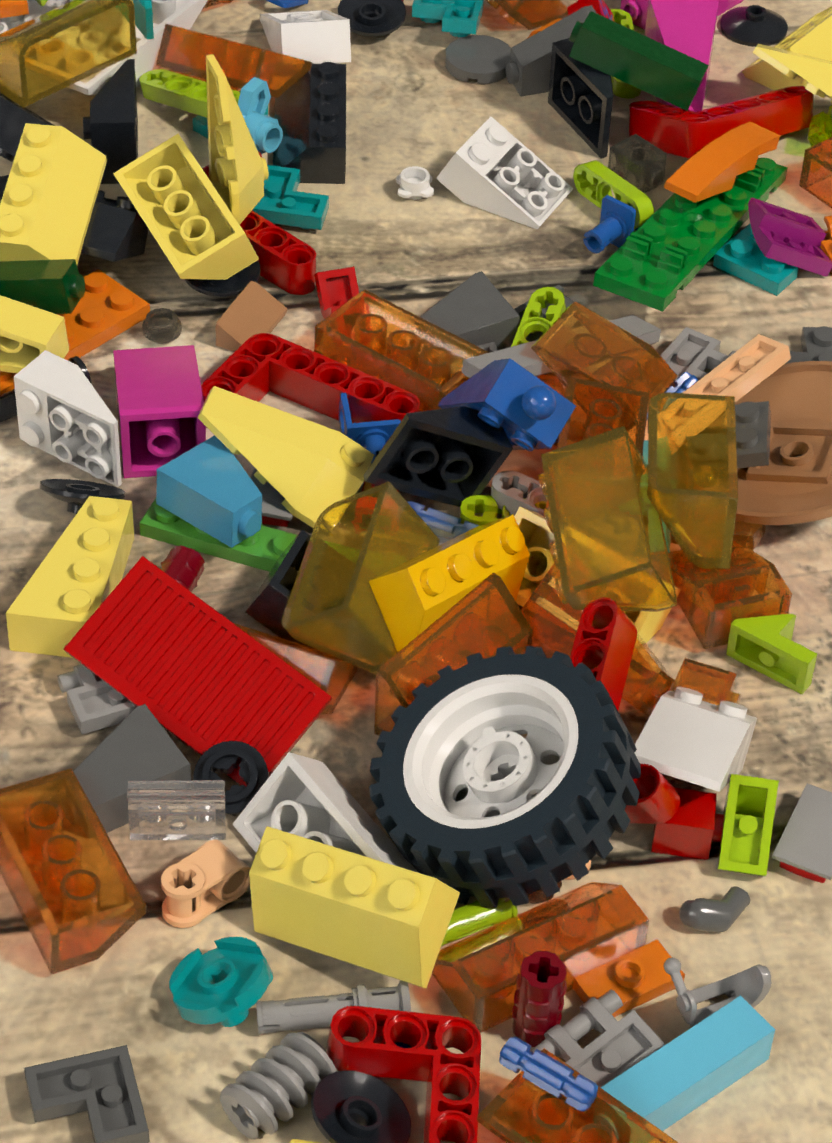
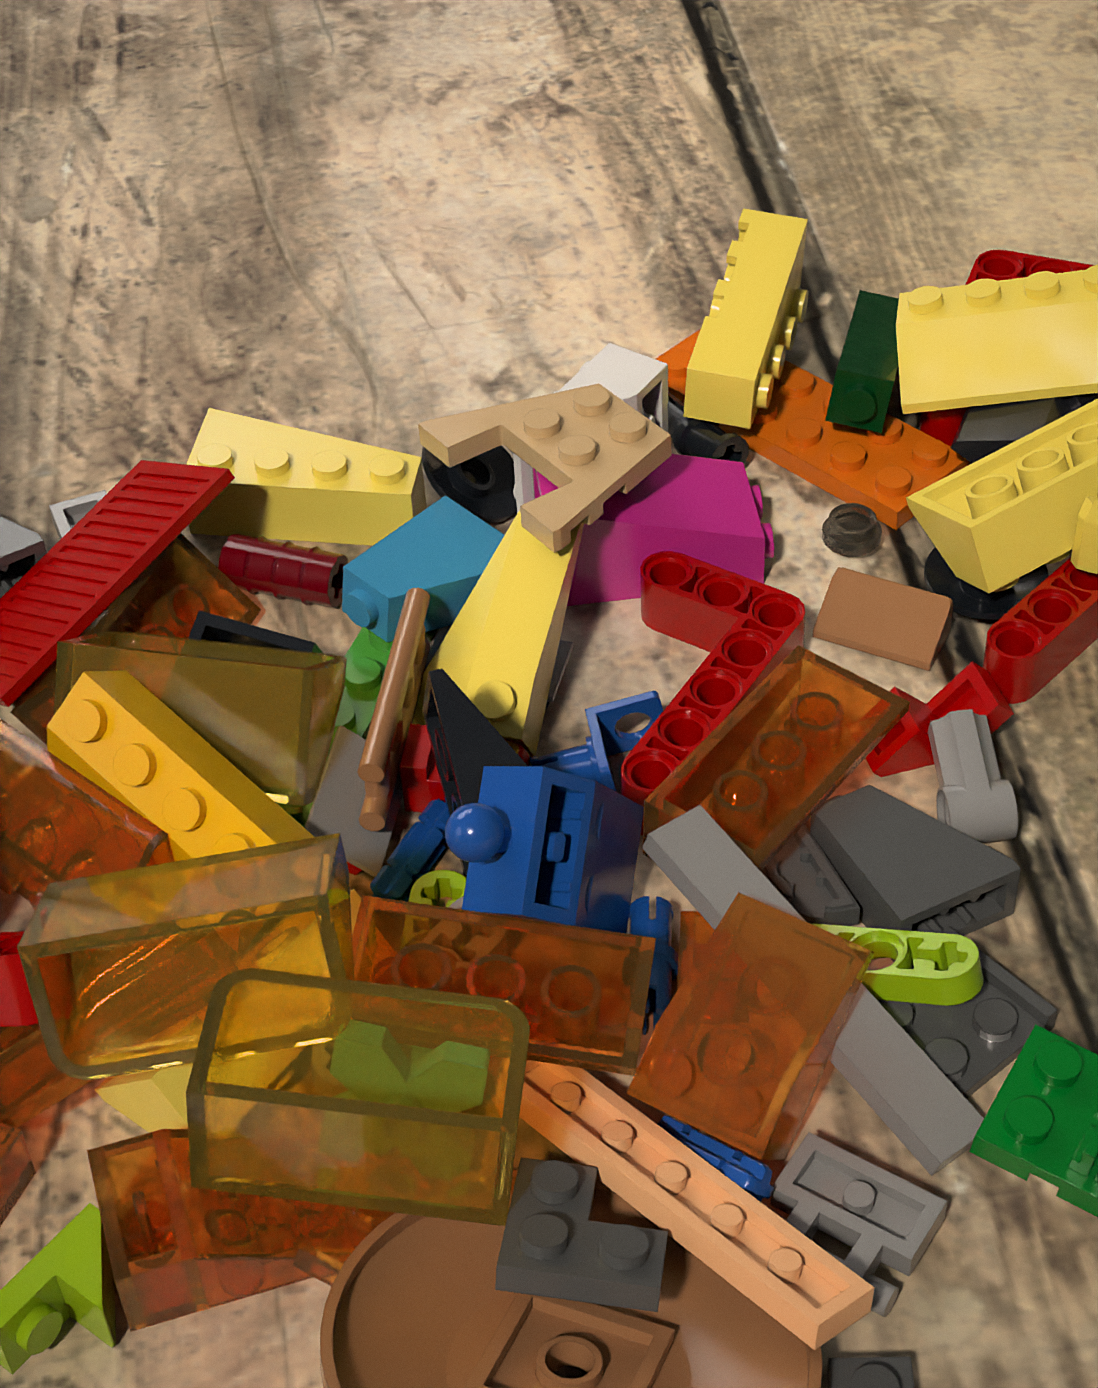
camera: 95 degrees right, 0 degrees up
(150, 379) = (574, 438): none -> tan wing
(328, 489) = (394, 710): none -> medium nougat bar
(412, 292) = (969, 779): none -> light grey piece

